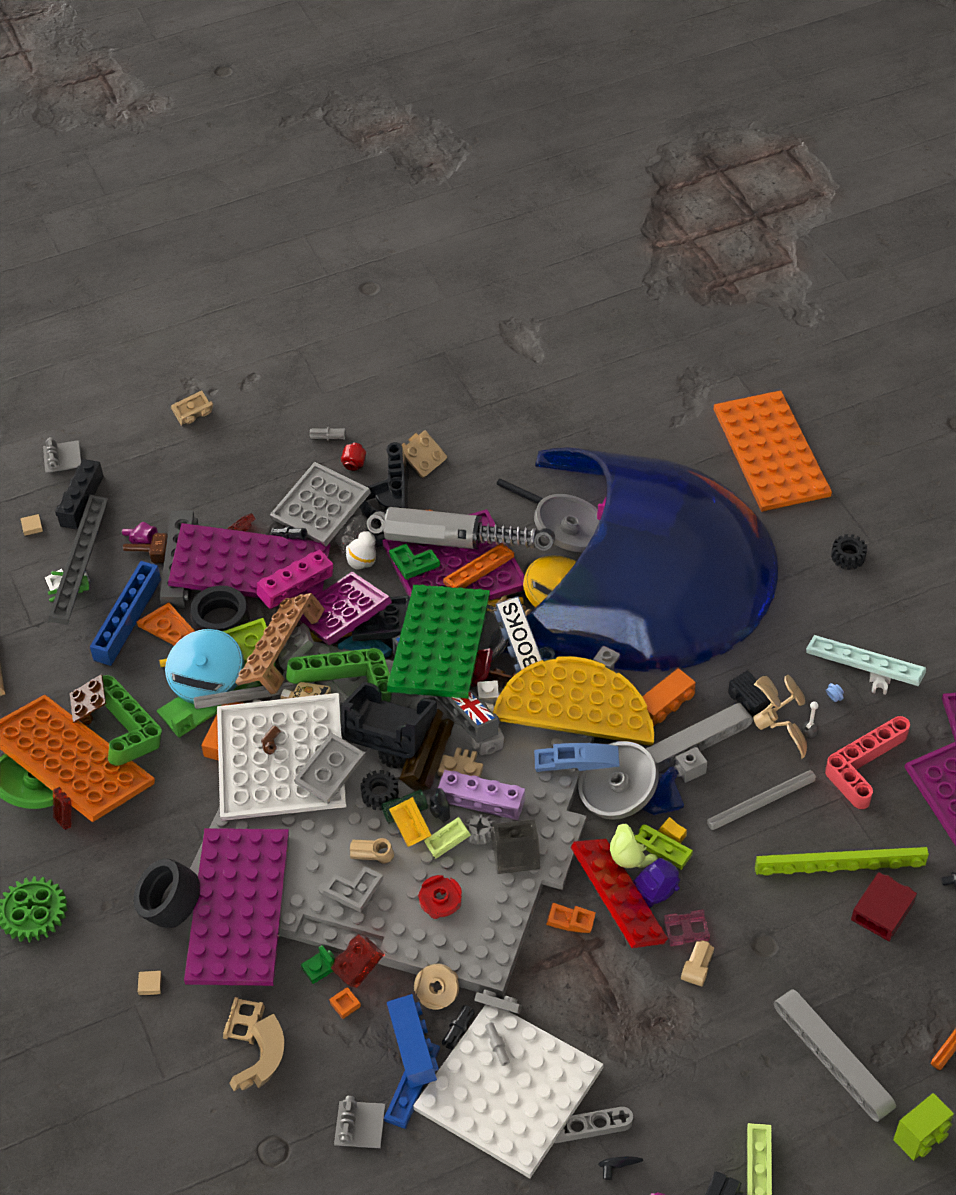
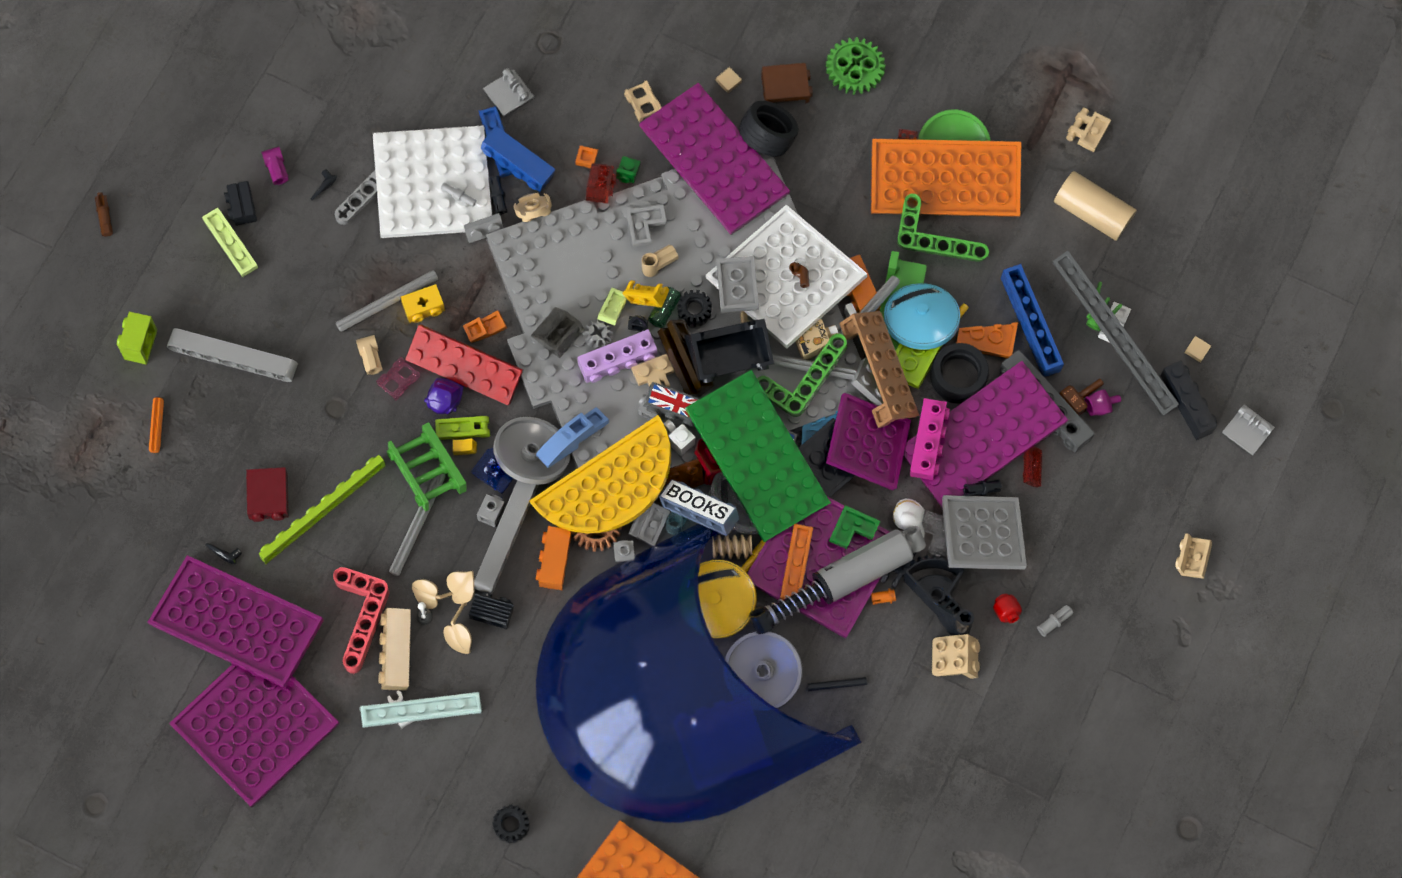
camera: 135 degrees right, 20 degrees up
(87, 700) = (980, 229): hinge -> none
(108, 935) = (786, 83): none -> reddish brown panel
(271, 1043) = (610, 95): tan arch -> none
(443, 907) = (583, 271): red plate -> none
(620, 981) = (429, 297): none -> yellow brick
(627, 851) = (475, 391): yellowish green piece -> none
(643, 1004) = (386, 301): none -> light grey axle
(702, 837) = (437, 452): none -> bright green fence
(835, 692) = (426, 662): light blue plate -> none
(855, 713) = (395, 649): none -> tan brick

